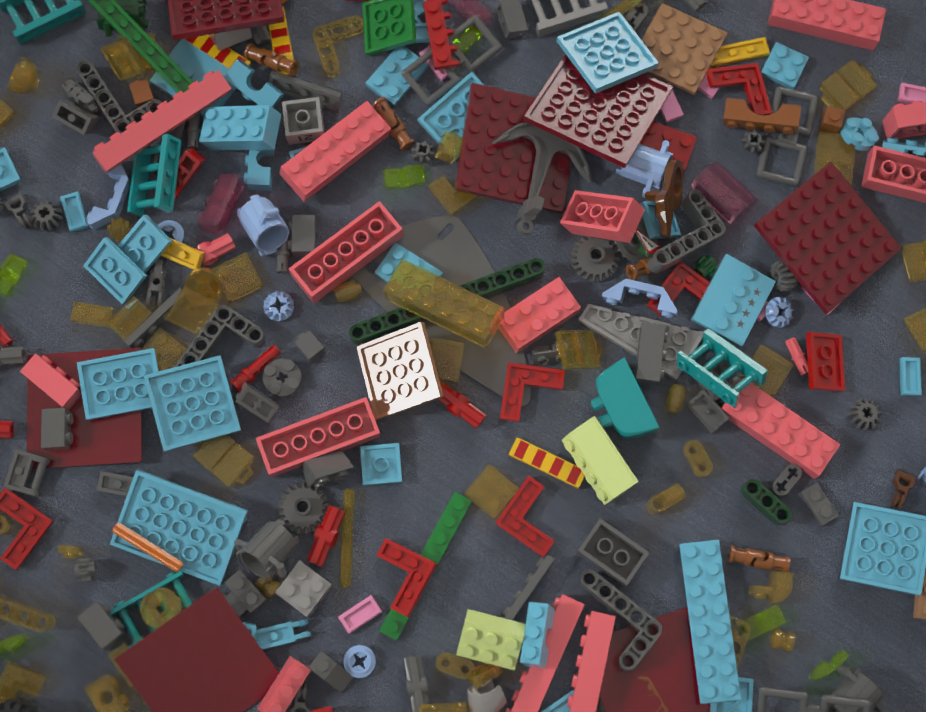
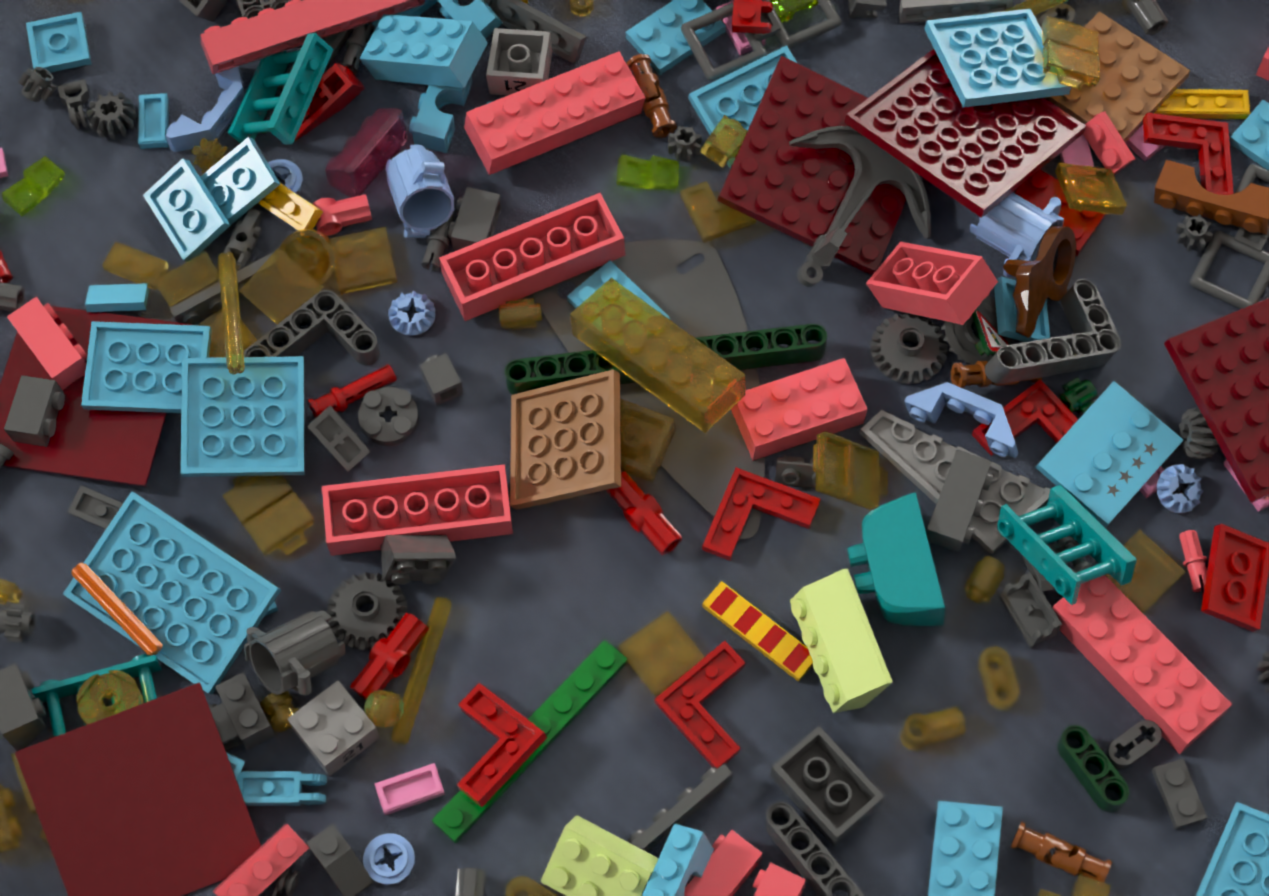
camera: 20 degrees right, 10 degrees down
(86, 339) = (117, 297): none -> medium azure tile
(166, 337) = (231, 313): none -> clear yellow axle
(332, 569) = (384, 708): none -> clear yellow piece
(381, 464) = (502, 573): medium azure plate -> none
(652, 39) = (1070, 53): none -> clear yellow piece
(684, 128) = (1090, 189): none -> clear yellow plate
(687, 94) = (1107, 143): none -> coral plate
(723, 192) = (1131, 295): clear pink slope -> none

